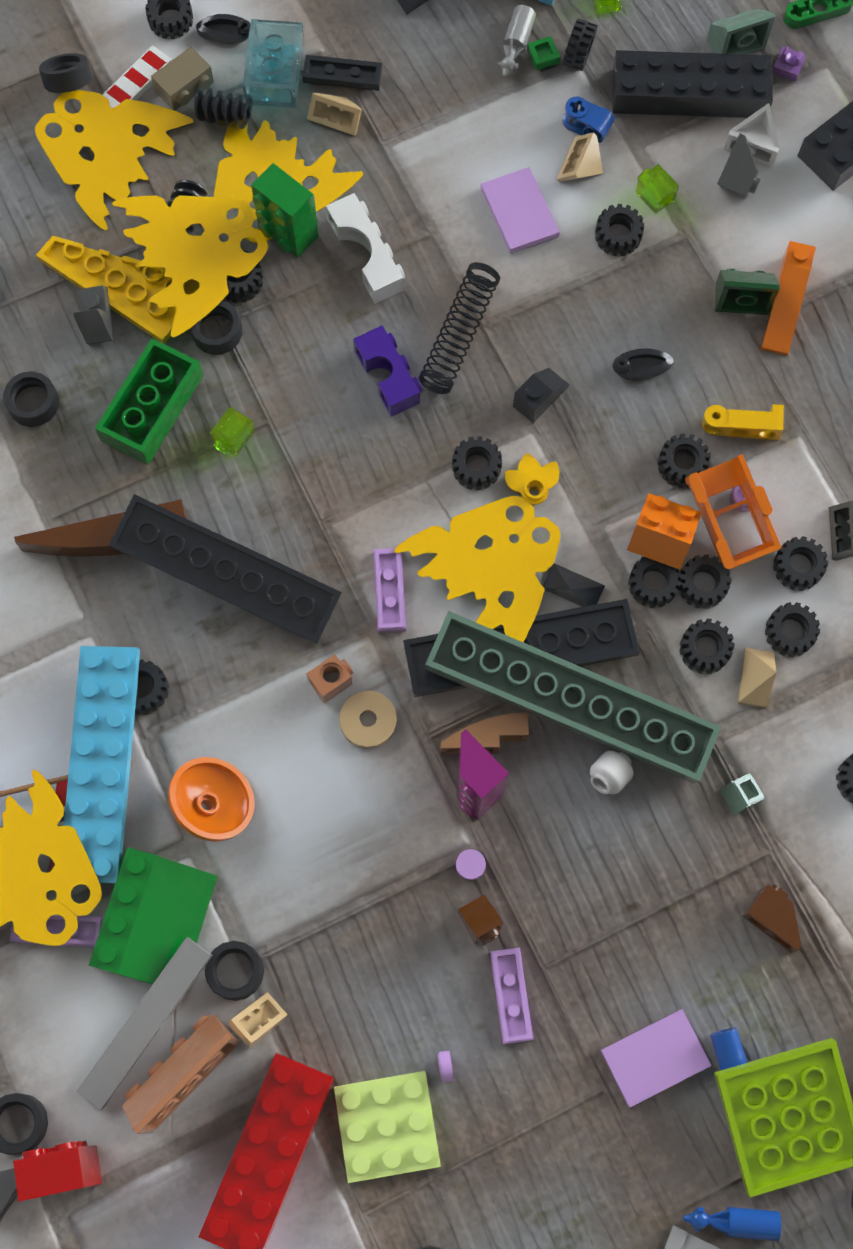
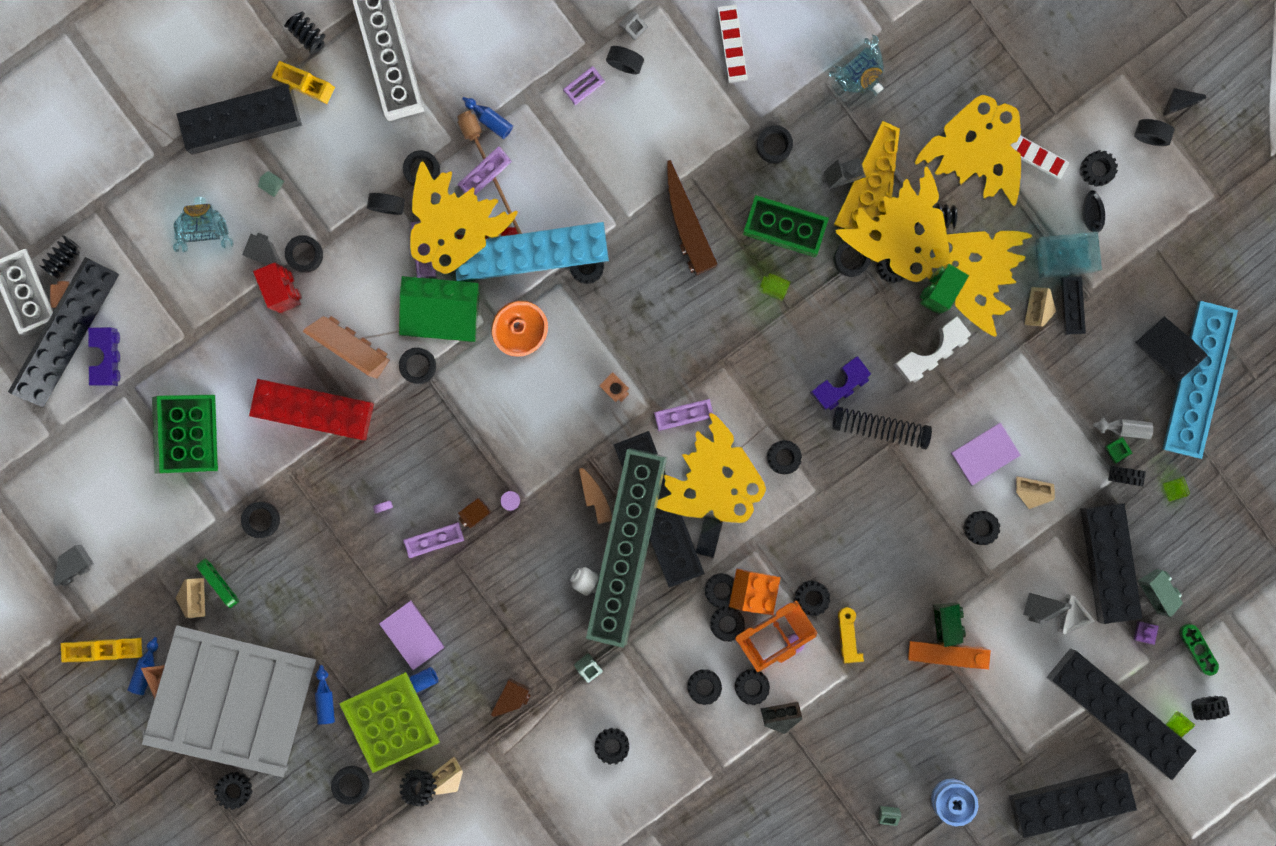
camera: 80 degrees right, 15 degrees up
(65, 73) = (1039, 102): black tyre -> none
(144, 1023) = (375, 318): light grey tile -> none
(181, 78) = (1044, 191): dark tan brick -> none
(222, 109) = (1023, 225): black piece -> none
(225, 569) = (673, 304): black plate -> none
(257, 1020) = (389, 386): tan slope -> none
(363, 703) = (581, 417): tan tile -> none
(387, 1127) = (342, 477): yellowish green plate -> none
(479, 778) = (556, 496): magenta slope -> none
(532, 476) = (783, 497): yellow plate -> none
(538, 393) = (844, 492): black slope -> none
(587, 119) = (1067, 493): blue piece -> none
(642, 364) = (880, 559): black arm -> none
(656, 188) = (1020, 549): clear neon green brick -> none
(711, 630) = (682, 643): black tyre -> none
(757, 677) = (668, 667): tan slope -> none

